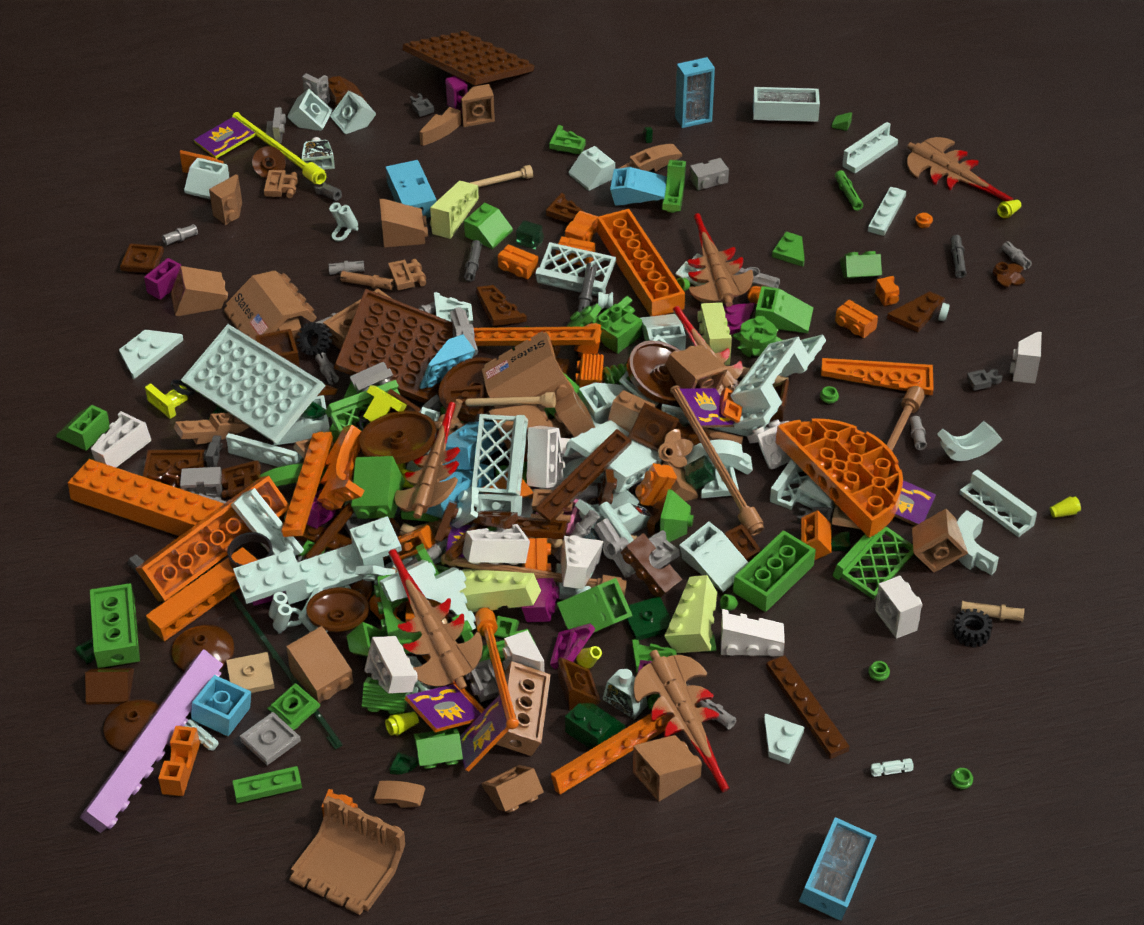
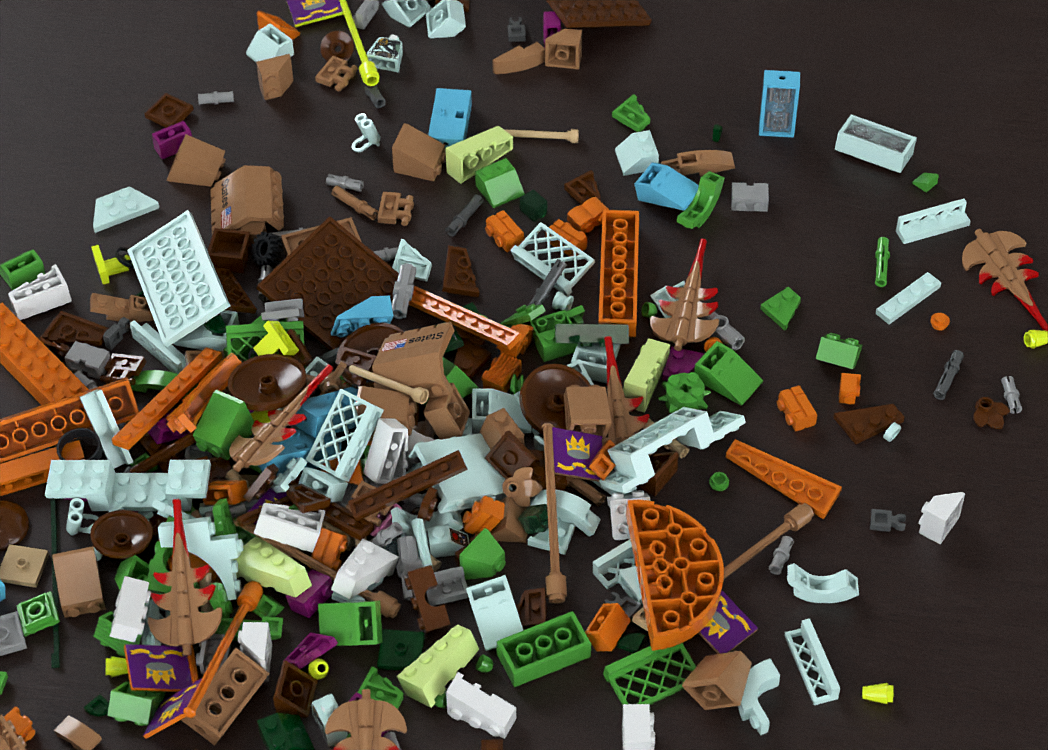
camera: 25 degrees right, 5 degrees up
(651, 314) = (591, 334): none -> bracket

